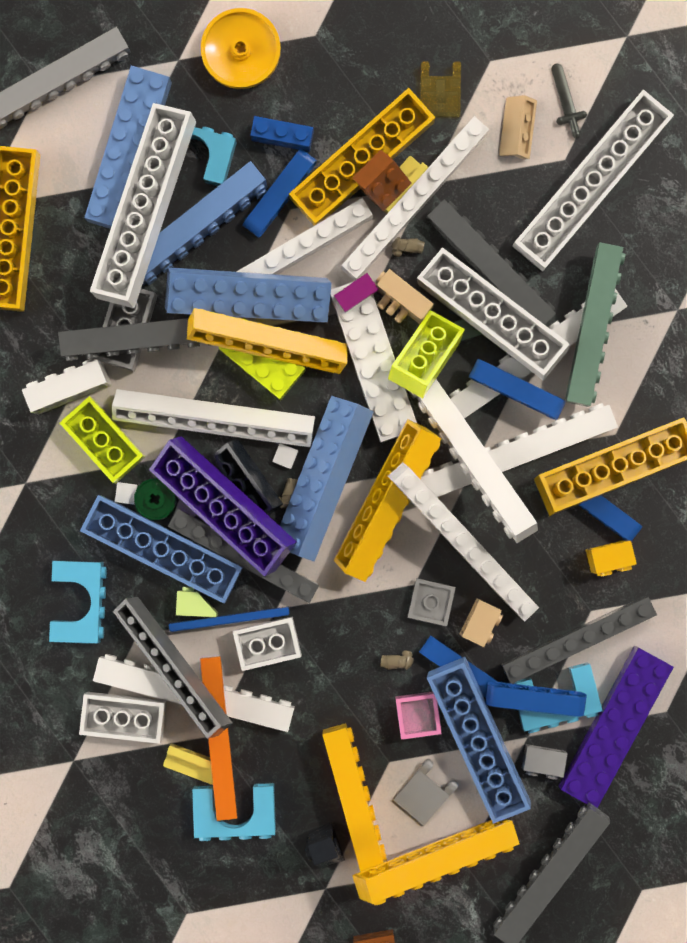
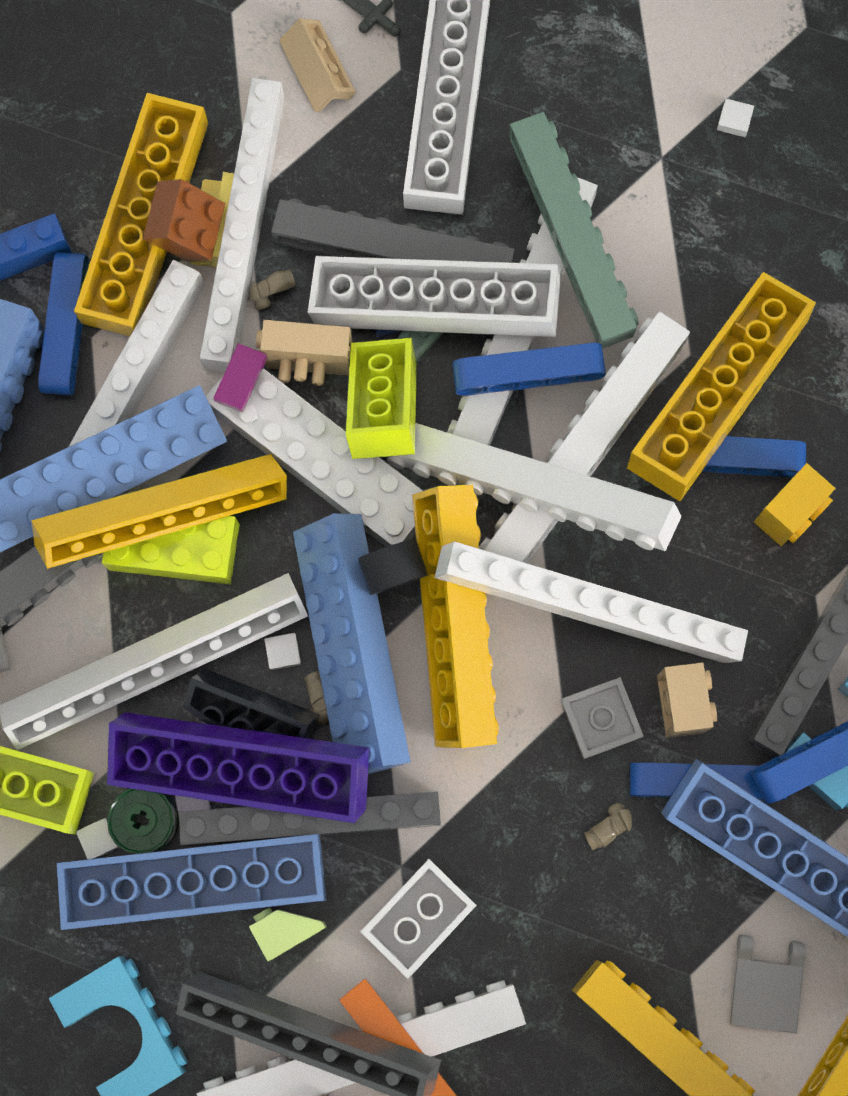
camera: 35 degrees left, 10 degrees down
(227, 619) = (344, 920): blue tile -> none
(371, 453) = (393, 566): none -> black piece
(418, 715) = (687, 882): piece -> none
(441, 93) = (195, 79): clear yellow flag -> none

